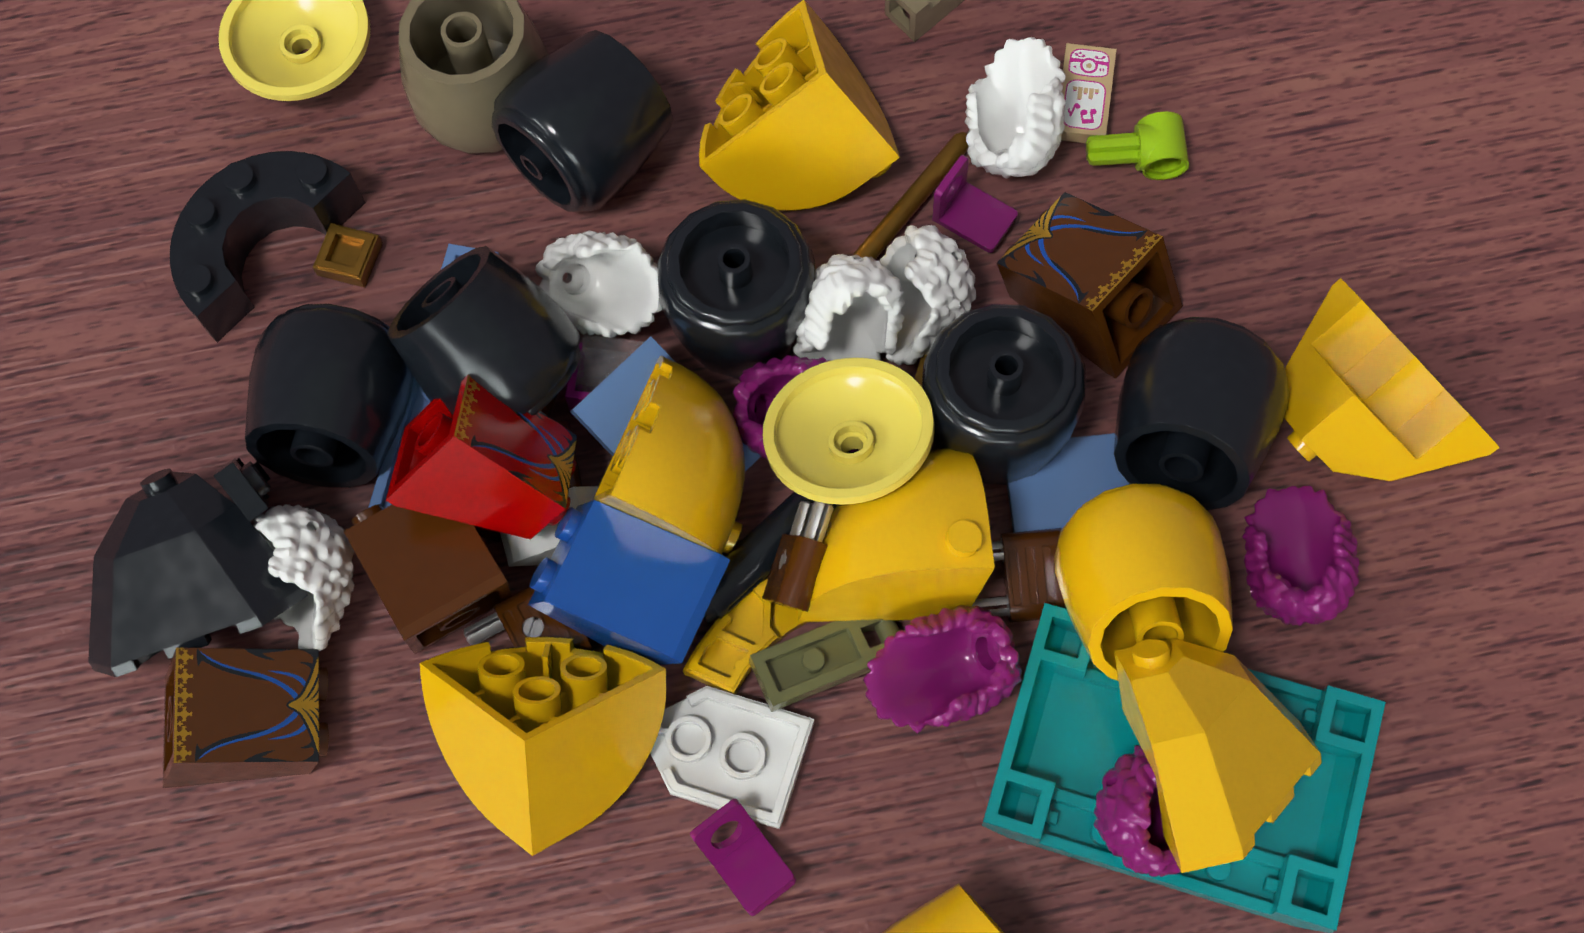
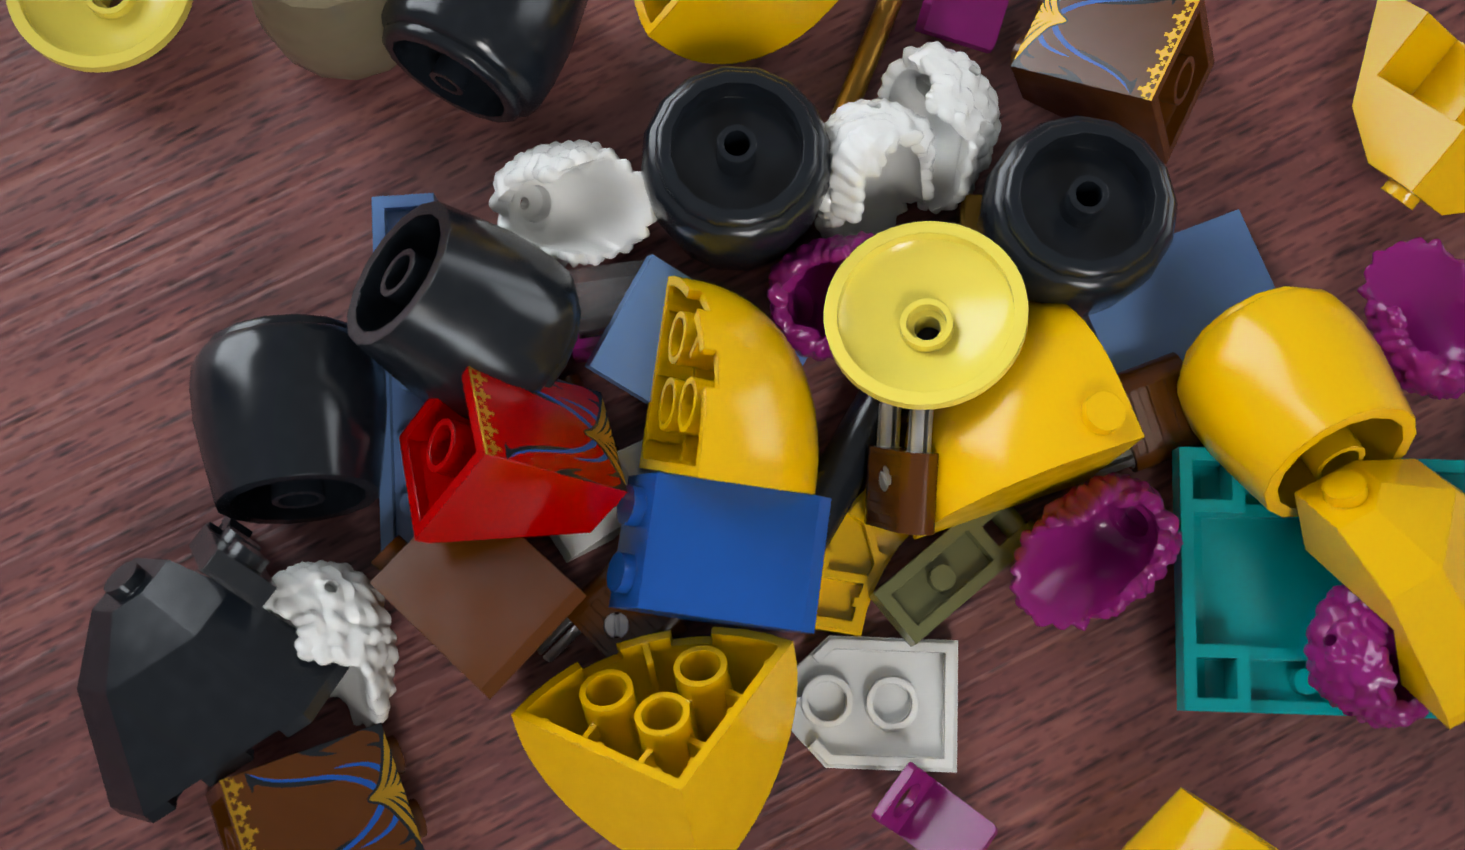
camera: 25 degrees left, 10 degrees up
(237, 212) = (103, 221): black brick -> none
(347, 255) = (252, 238): pearl gold tile -> none
(1200, 409) = (1289, 184): black piece -> none

